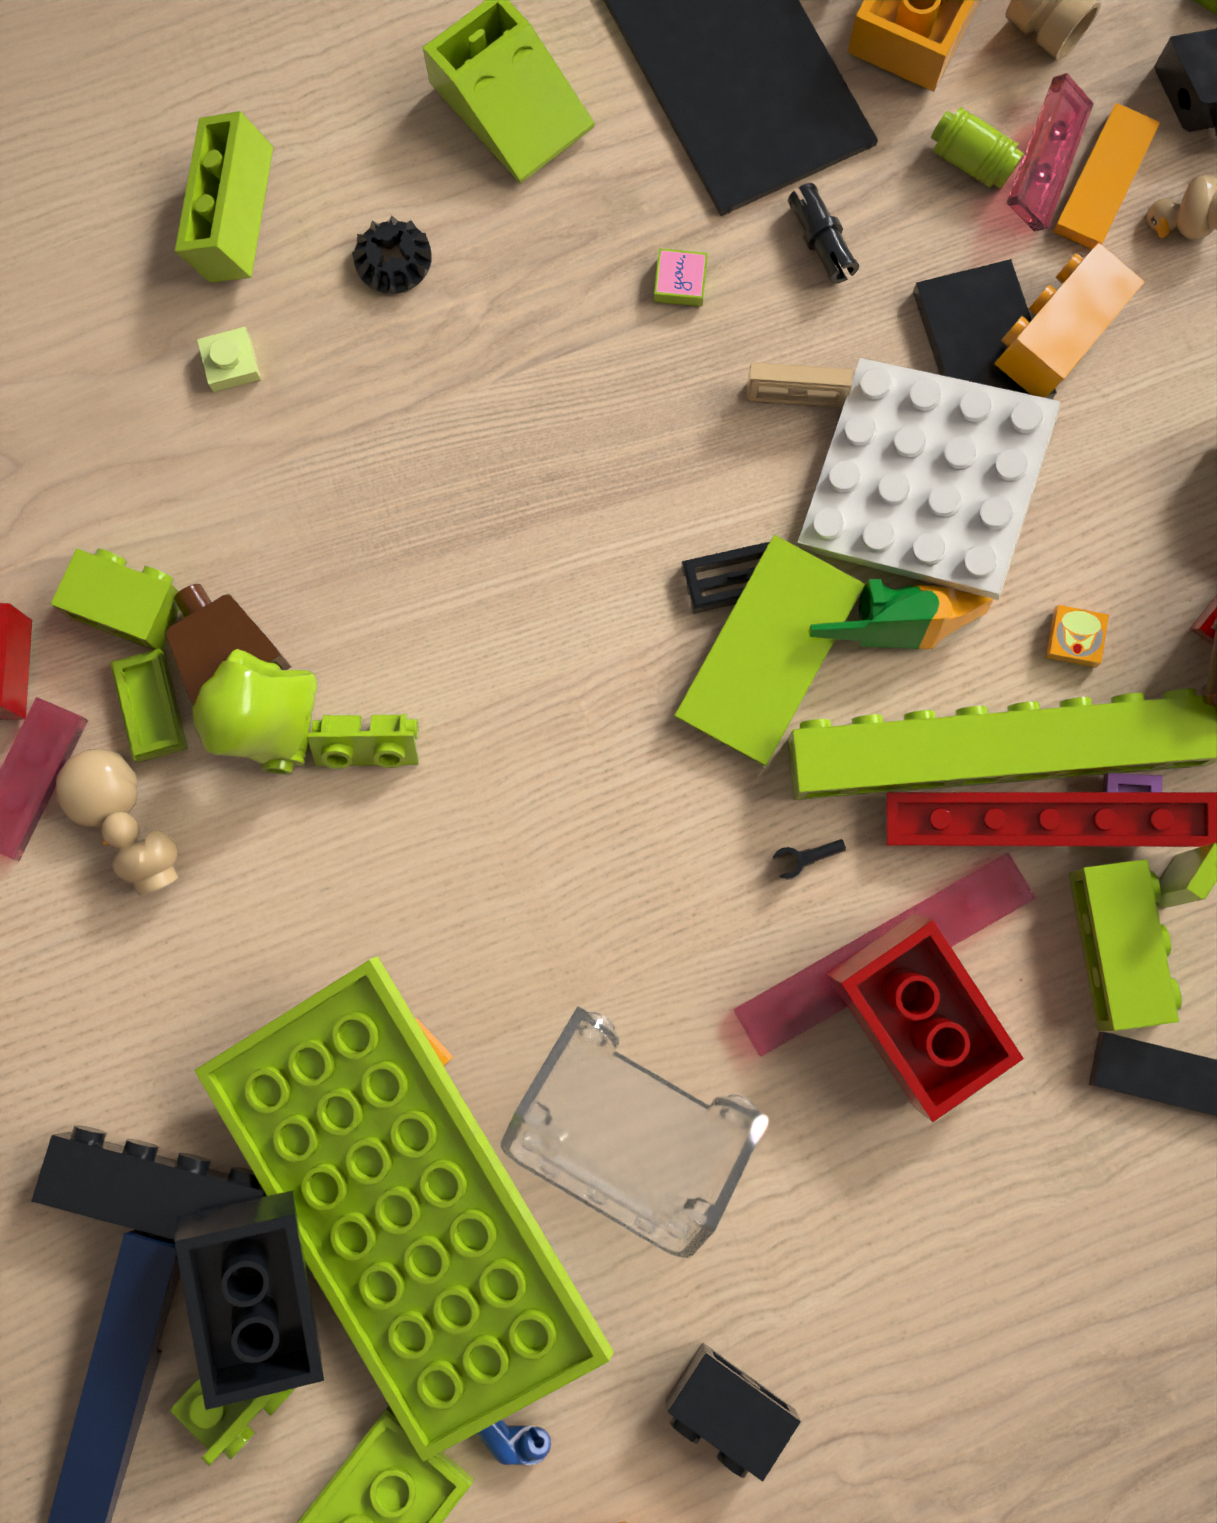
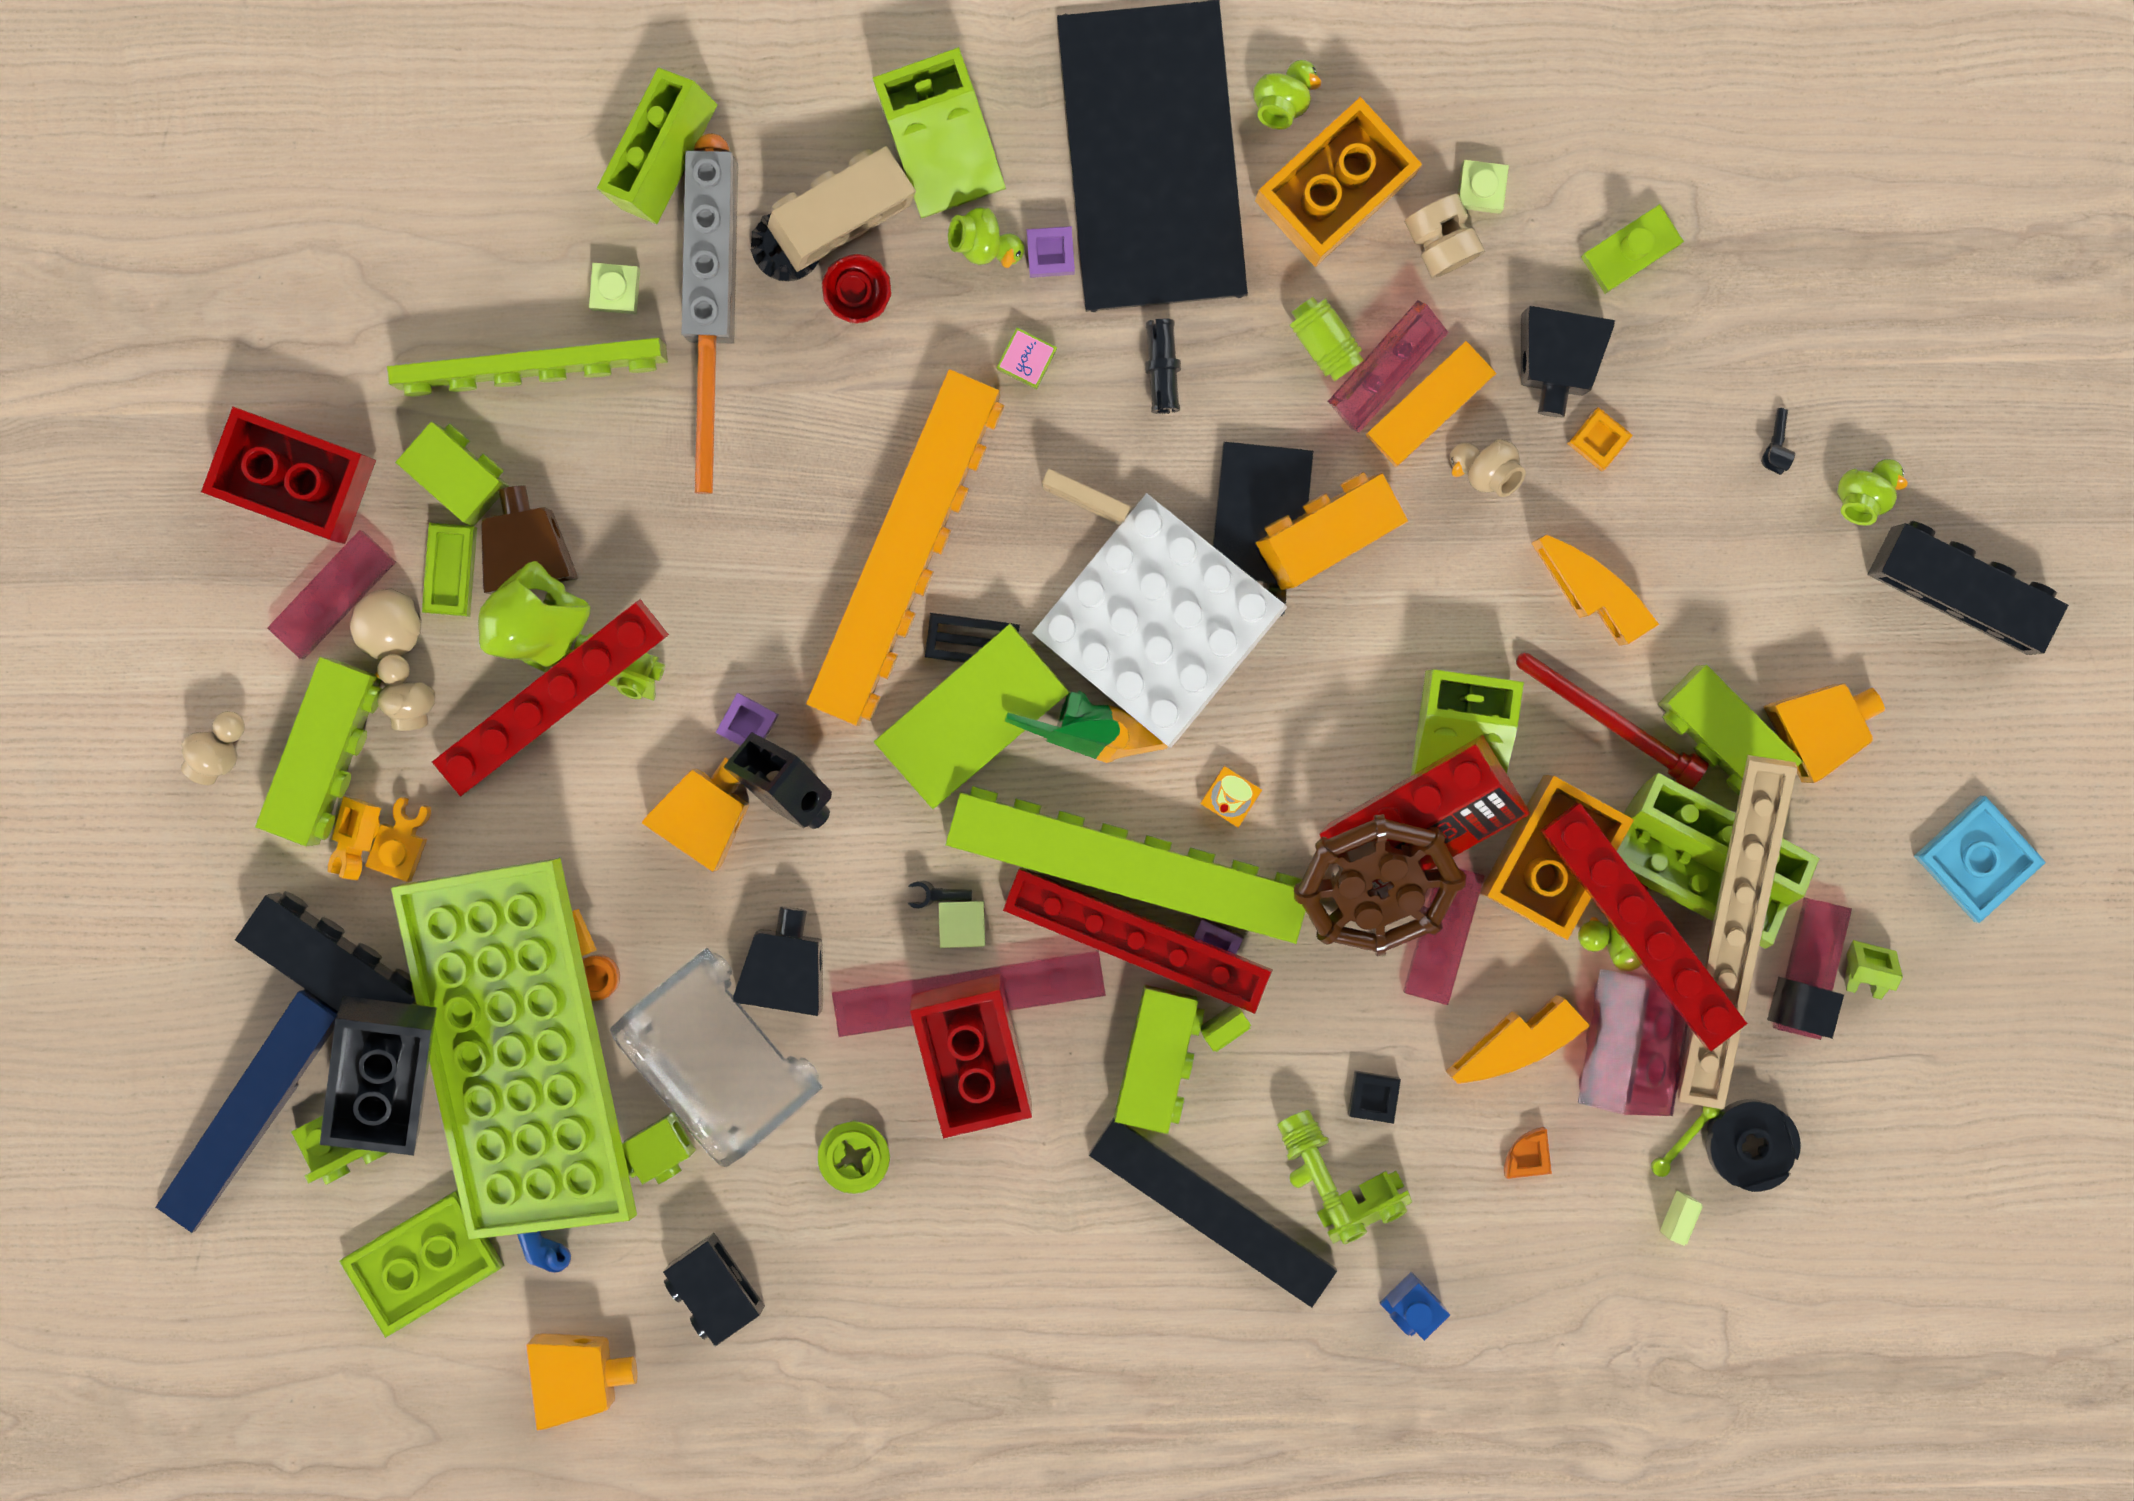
camera: 20 degrees right, 10 degrees up
(66, 952) = (320, 752): none -> lime brick
(132, 1029) = (354, 832): none -> light orange plate
(151, 466) = (509, 368): none -> lime plate
(189, 1030) = (397, 847): none -> light orange plate
(303, 794) = (550, 697): none -> red plate
(325, 314) = (709, 278): none -> light grey piece
(435, 190) = (840, 207): none -> tan brick
(472, 1086) = (601, 976): none -> orange tile
(481, 263) = (856, 288): none -> red hair
(516, 861) = (701, 816): none -> light orange torso
(529, 747) = (746, 717): none -> medium lavender plate
(589, 176) = (979, 239): none -> lime animal
(593, 788) = (792, 793): none -> black torso
(606, 1267) = (657, 1150): none -> lime brick
(629, 507) = (905, 547): none -> light orange brick
(664, 165) = (1050, 252): none -> medium lavender plate
(671, 998) = (783, 968): none -> black torso
(846, 879) = (962, 924): none -> yellowish green tile
(857, 1186) = (849, 1177): none -> lime gear

